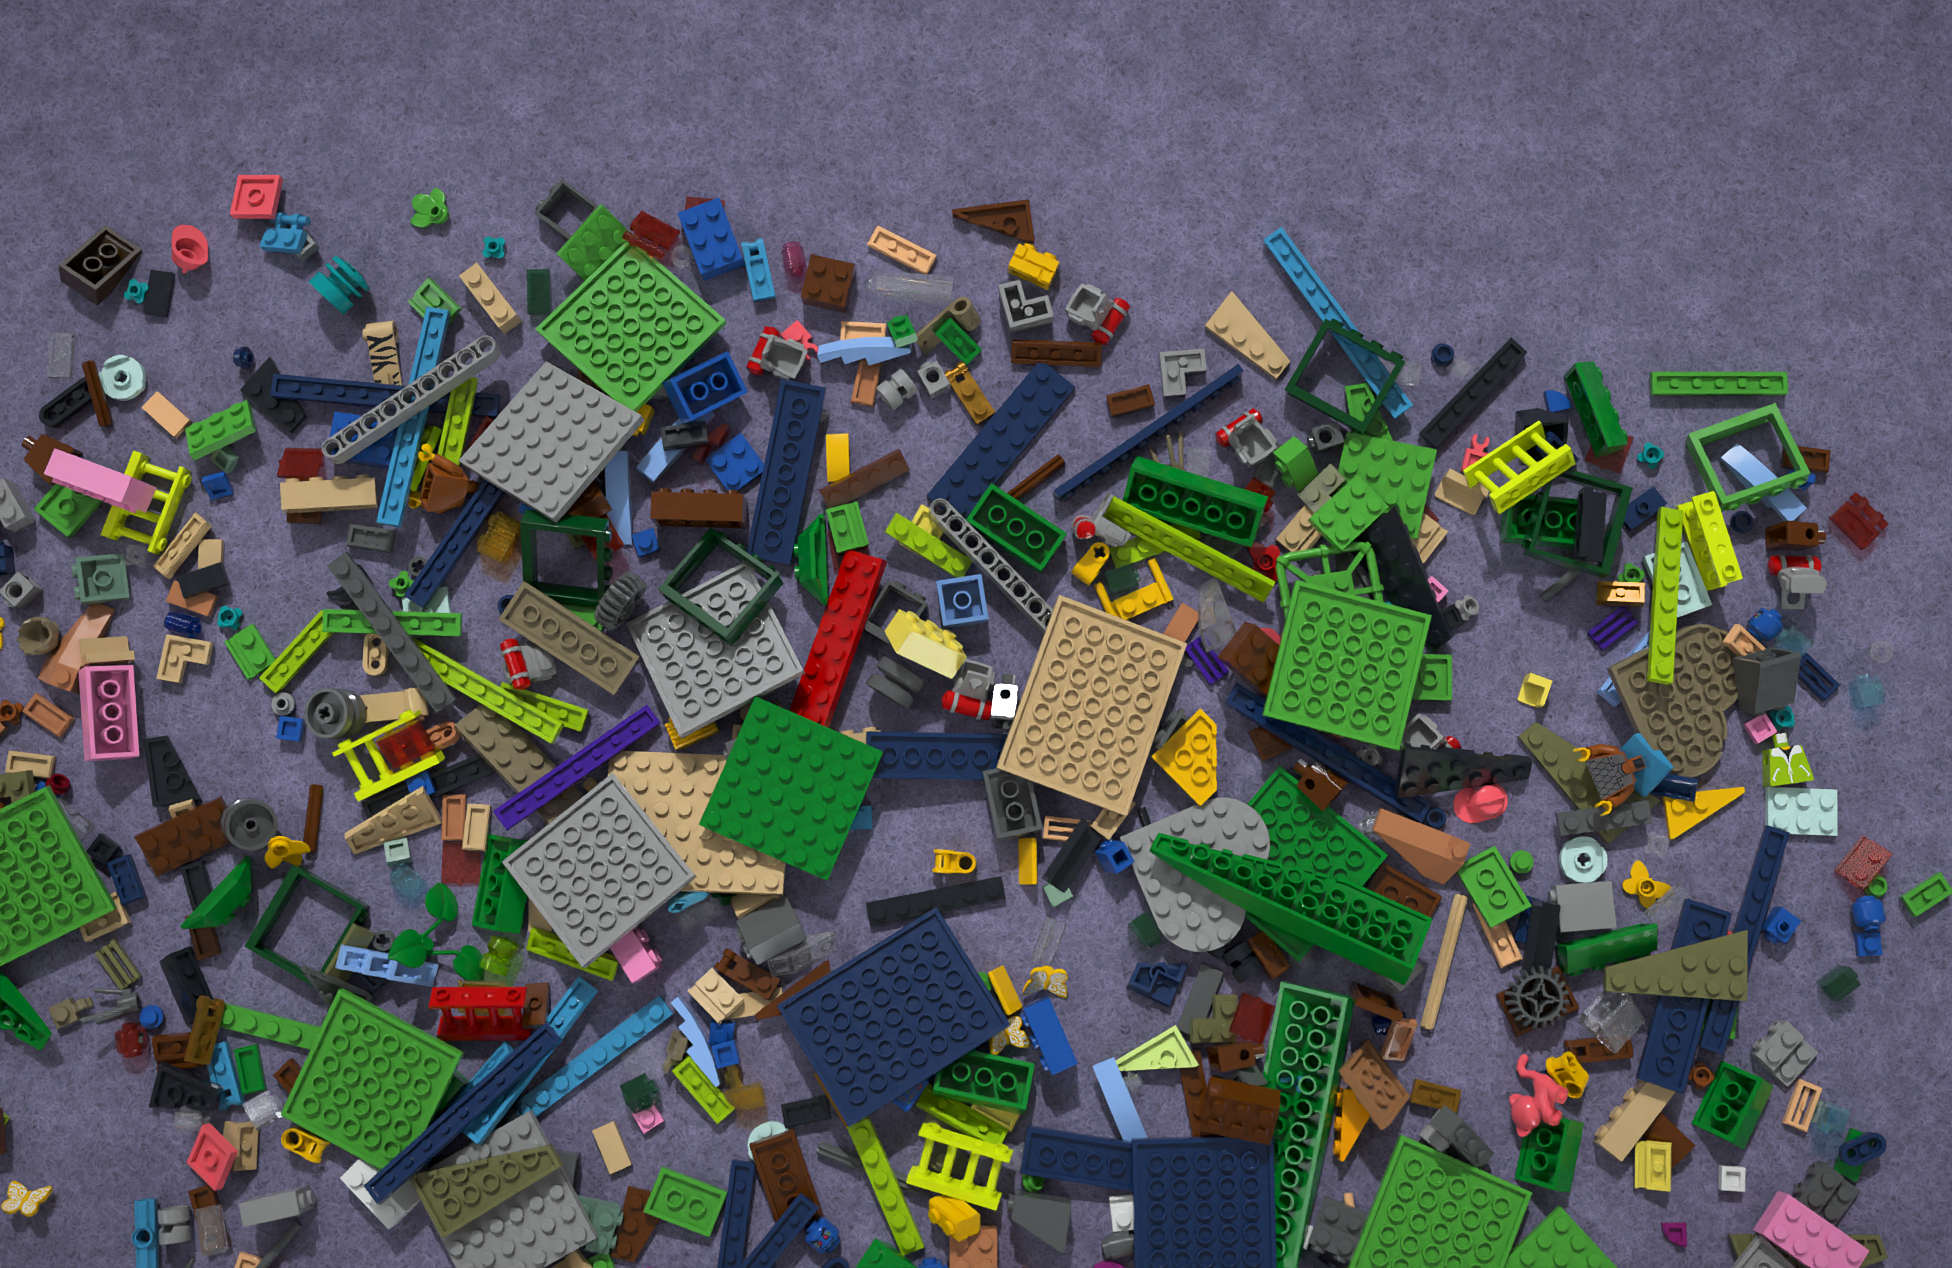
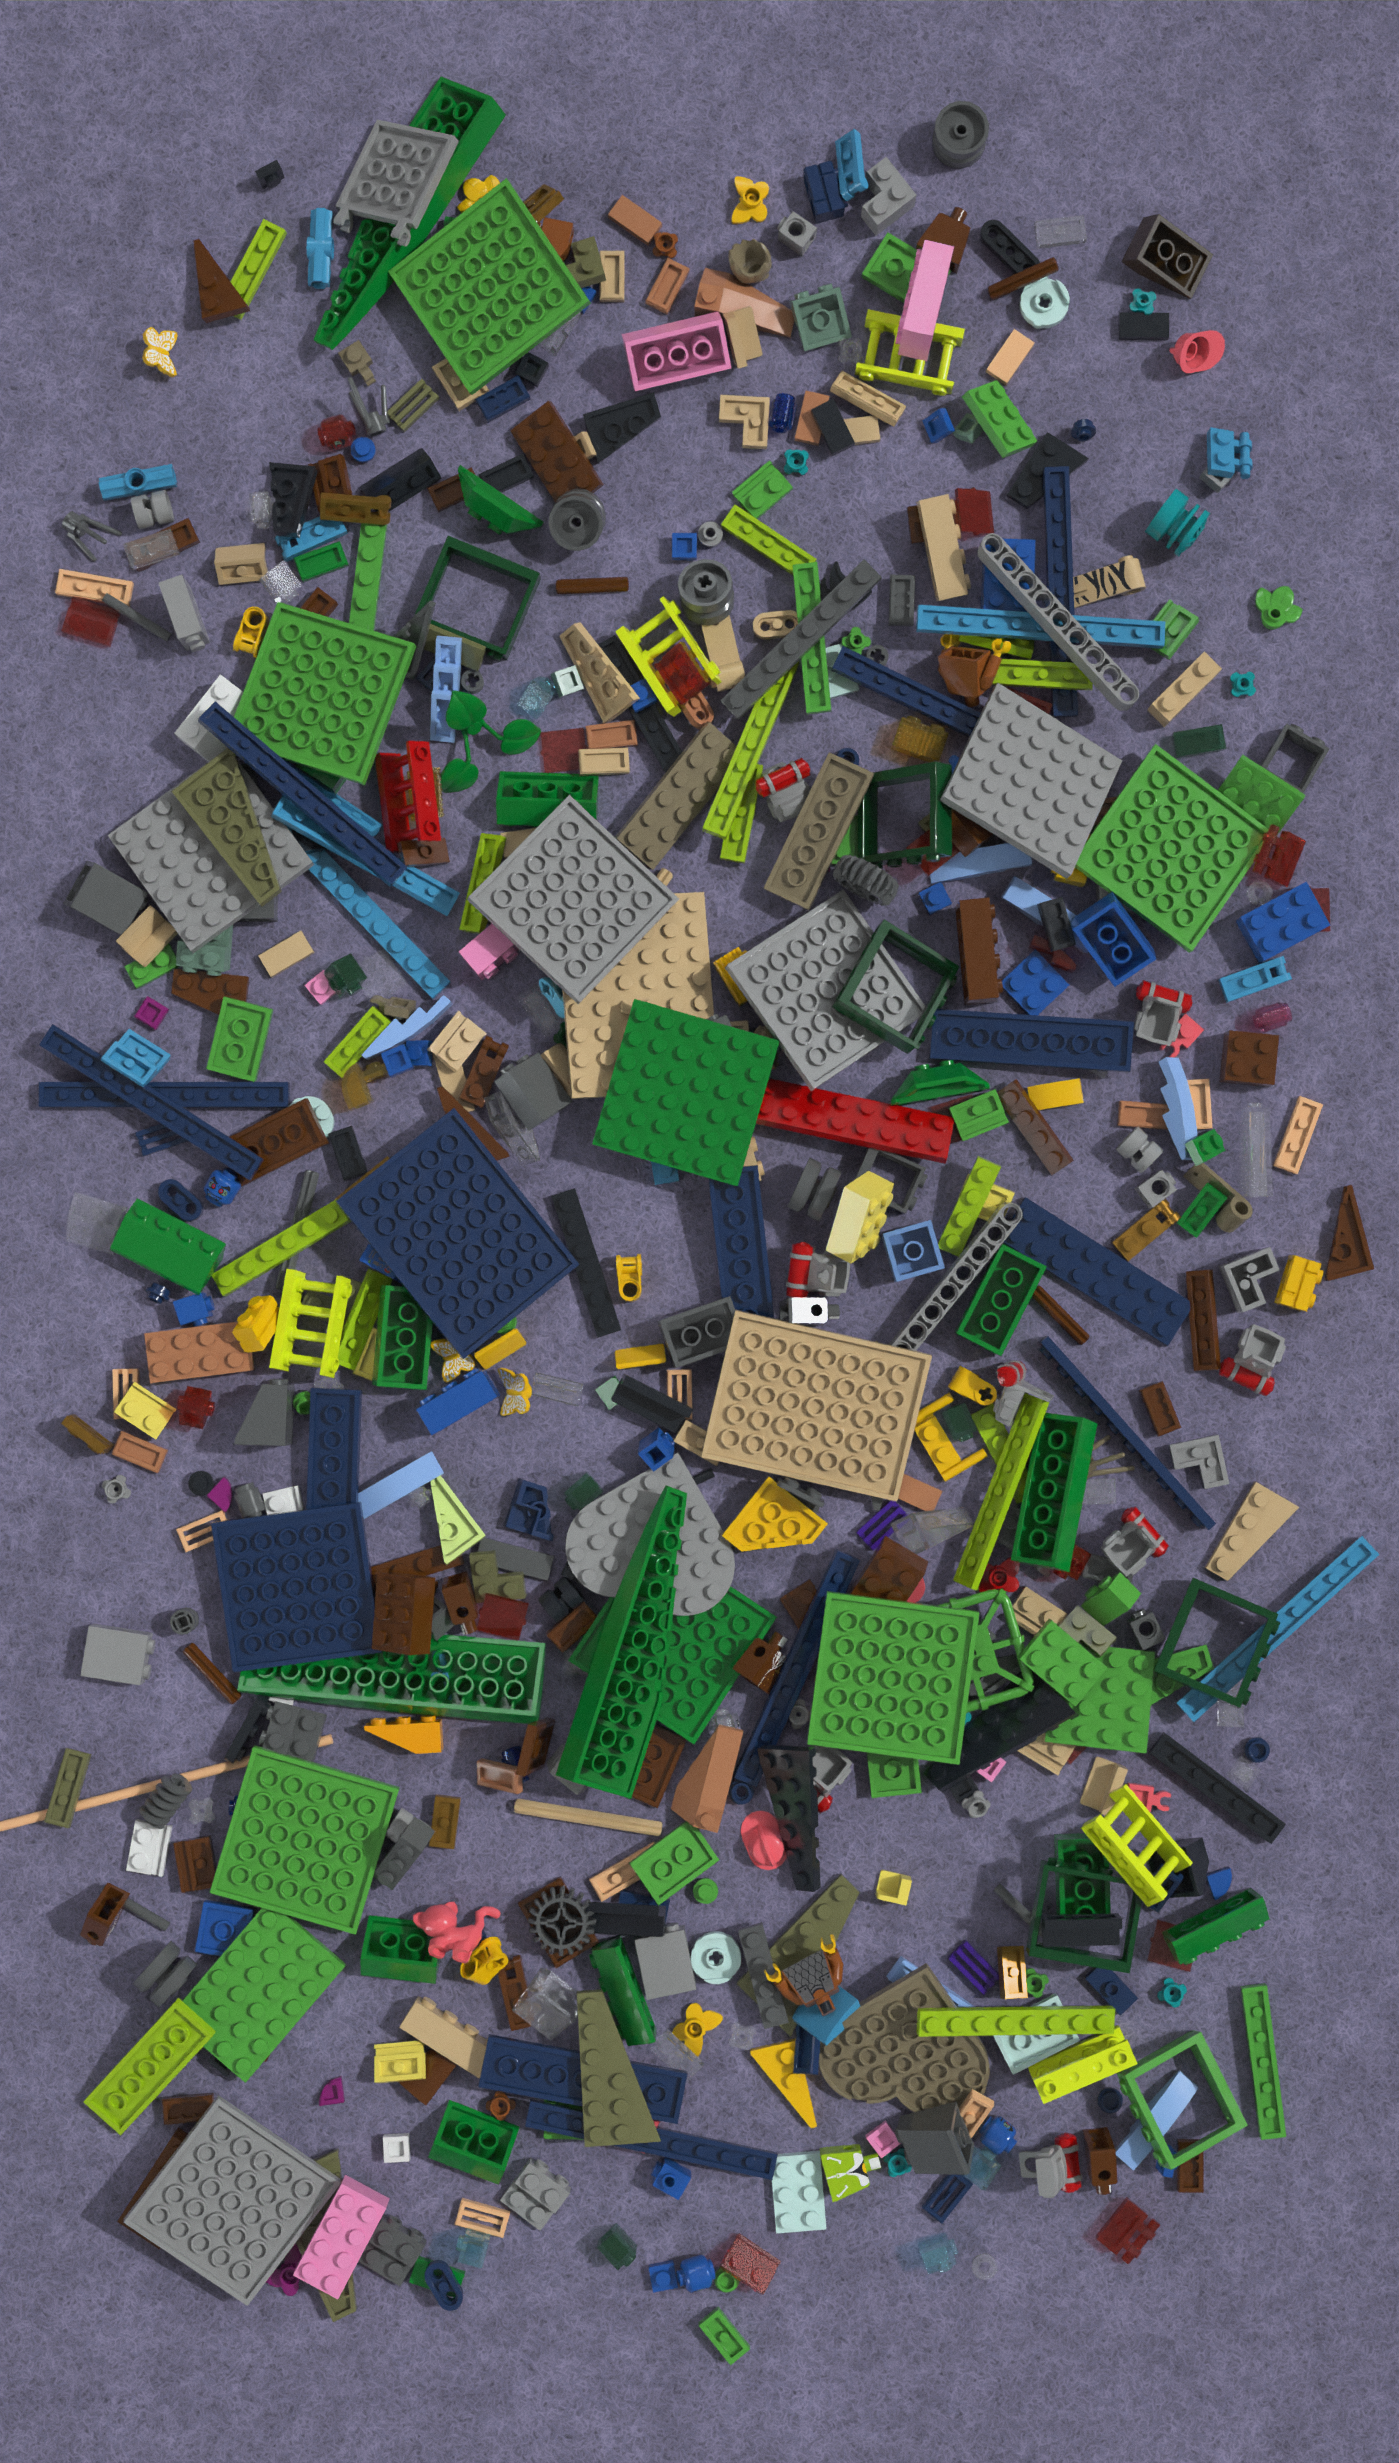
camera: 80 degrees right, 5 degrees up
(59, 784) = (595, 311): dark red plate -> none
(212, 1157) = (226, 537): coral plate -> none
(256, 196) = (1265, 415): coral plate -> none
(285, 850) = (554, 562): yellow plate -> none
(499, 955) = (471, 805): clear neon green wheel -> none
(576, 767) = (680, 859): dark purple plate -> none
(1374, 1084) = (448, 1754): medium nougat plate -> none

